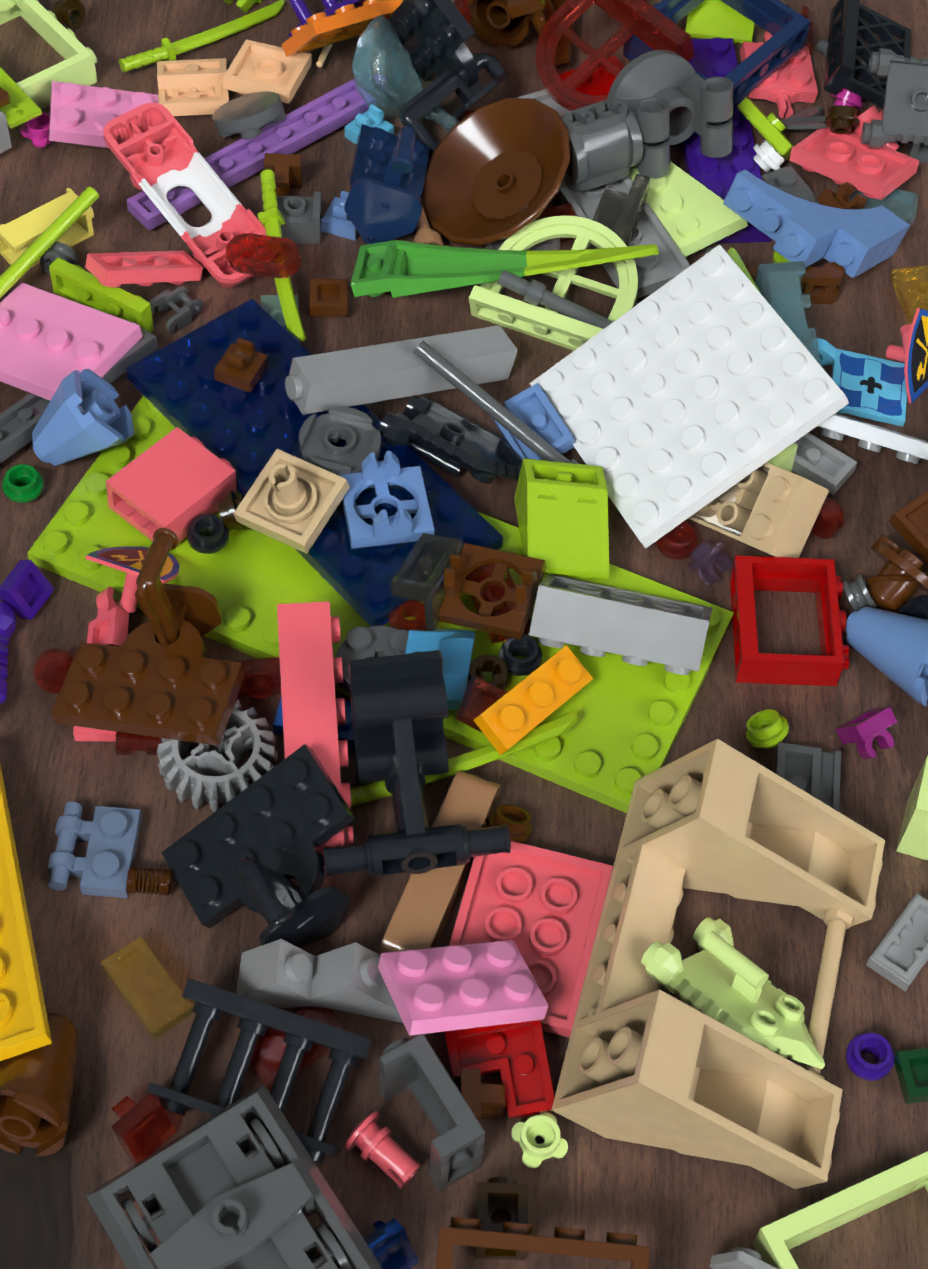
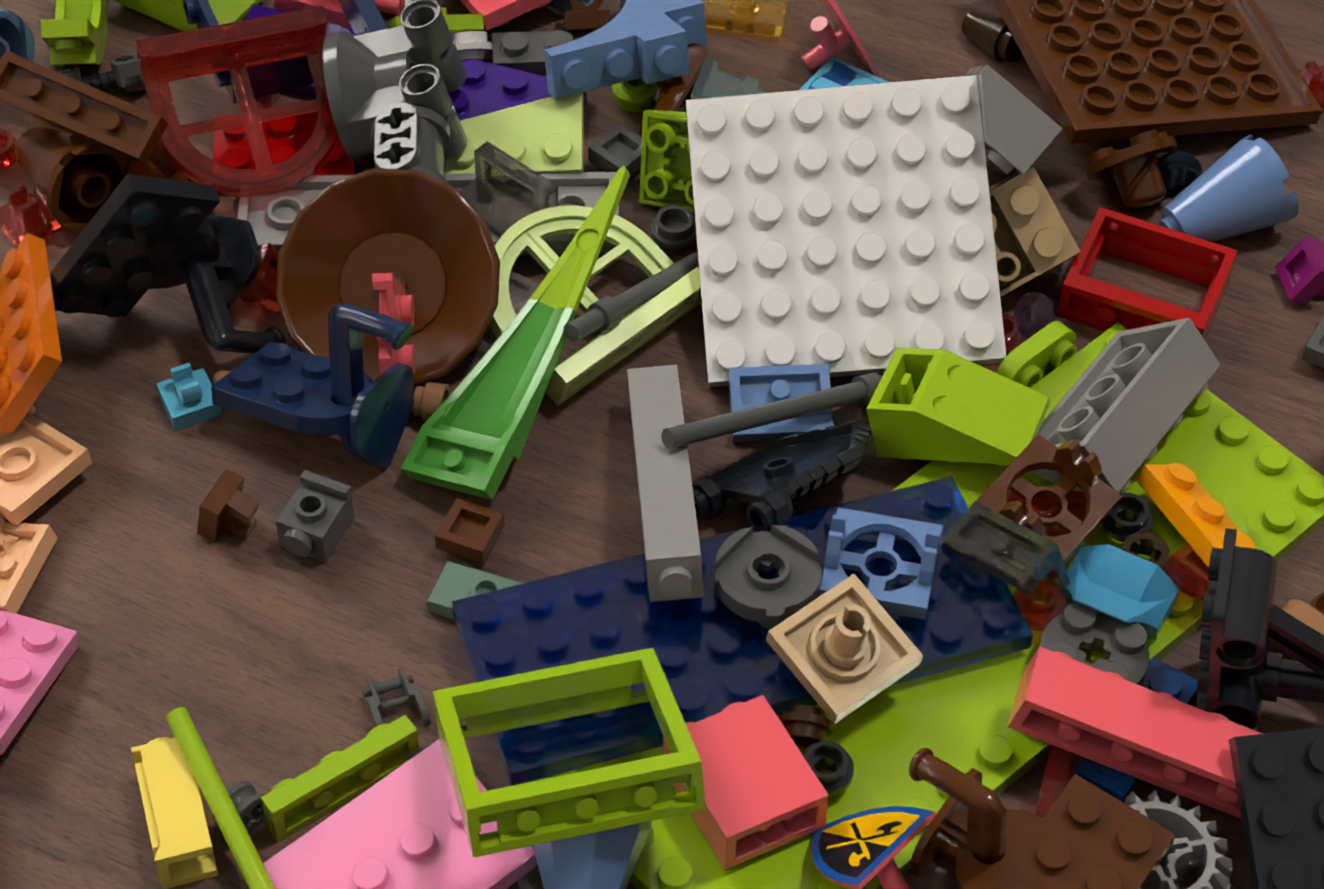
camera: 65 degrees left, 5 degrees down
(39, 339) = (575, 801): none -> lime window
(143, 268) = (331, 706): coral plate -> none
(163, 157) = (312, 603): coral piece -> none
(241, 366) = (586, 635): reddish brown tile -> none
(247, 155) = (164, 537): medium lavender plate -> none
(249, 114) = (98, 507): dark grey tile -> none
(266, 255) = (398, 561): clear red plate -> none
(272, 221) = (329, 536): lime sword -> none
(337, 221) = (334, 463): medium blue tile -> none
(387, 75) = (141, 333): clear light blue hat -> none
(450, 184) = (401, 307): none -> coral wing
(662, 565) = (1039, 354): none -> lime plate
(766, 729) = (1272, 344): lime plate -> none
(850, 448) = (1012, 125): none -> light grey slope
(858, 593) = (1137, 206): dark grey bush -> none

